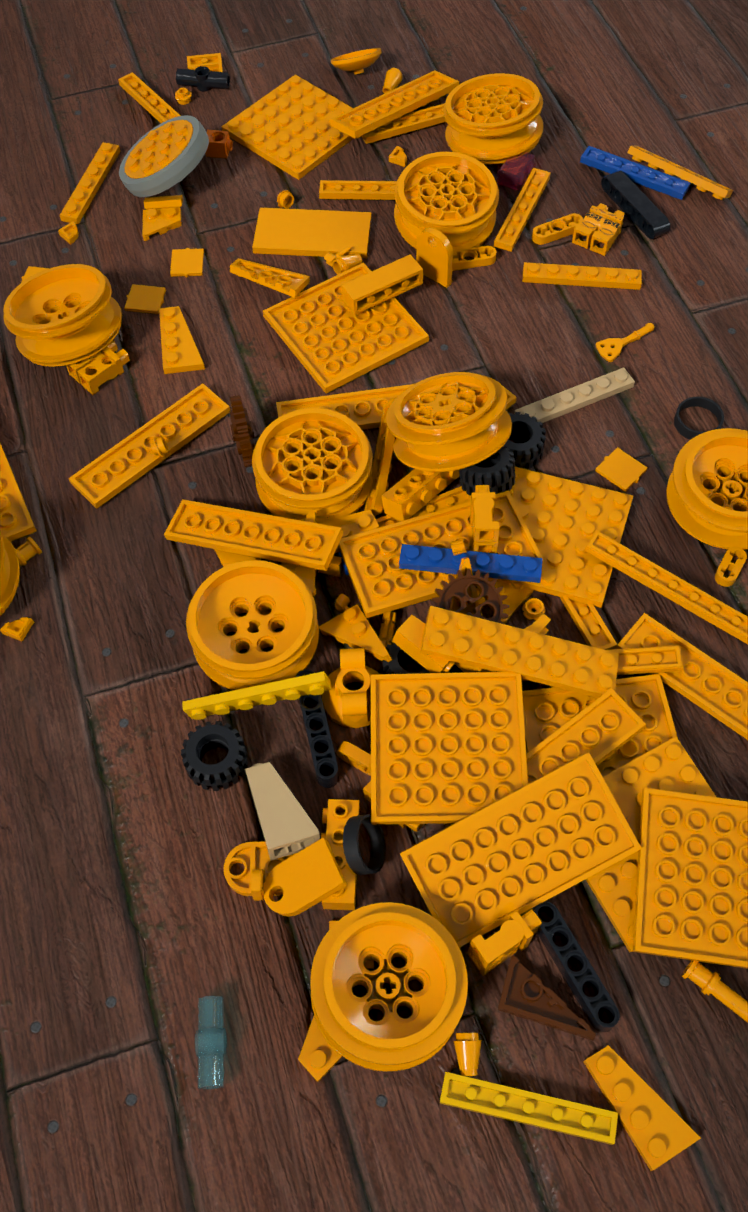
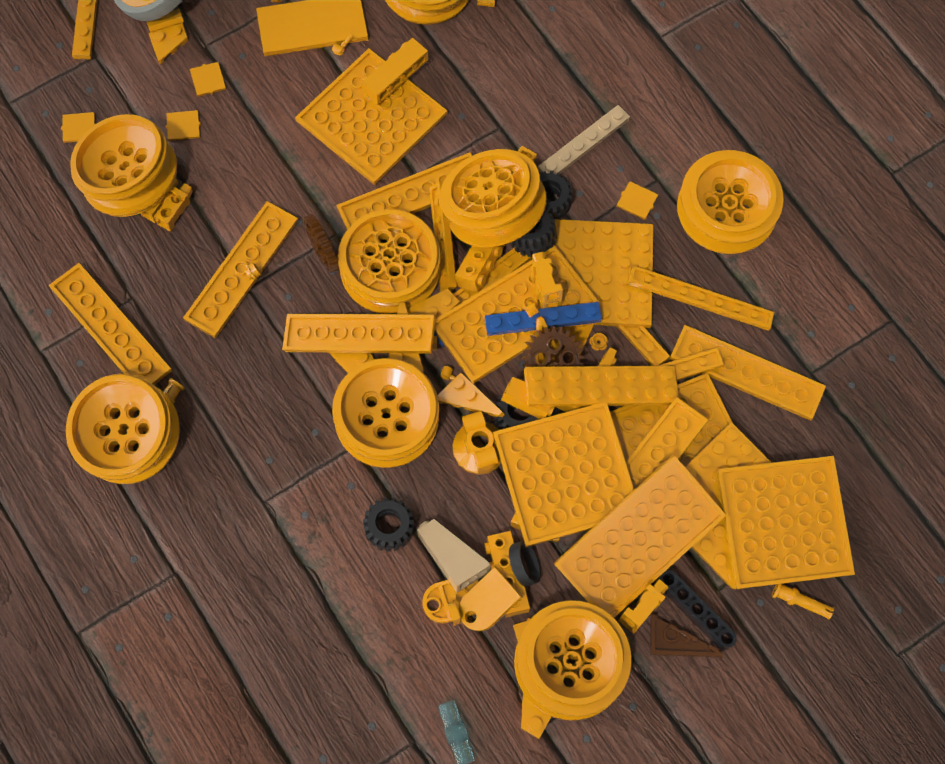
camera: 20 degrees left, 10 degrees up
(17, 629) = (189, 459): light orange tile -> none
(69, 232) = (87, 71): light orange tile -> none
(178, 346) = (229, 165): light orange wing -> none
(256, 695) = (414, 467): yellow plate -> none
(274, 278) = (295, 81): light orange wing -> none
(319, 738) = (452, 474): black beam -> none
(346, 262) = (353, 51): light orange cone -> none
(355, 756) = (497, 497): light orange beam -> none
(387, 628) = (489, 388): light orange axle -> none
(434, 256) = (432, 33): light orange tile -> none
(468, 1053) = (638, 690): light orange cone -> none
(483, 259) = (458, 28): light orange beam -> none
(529, 1108) = (688, 715): yellow plate -> none
(582, 276) = (560, 19): light orange plate -> none
(619, 343) = (607, 81): light orange piece -> none
(644, 1115) = (766, 697): light orange wing -> none
(697, 402) = (693, 124): black tyre -> none
(726, 564) = (744, 268): light orange beam -> none

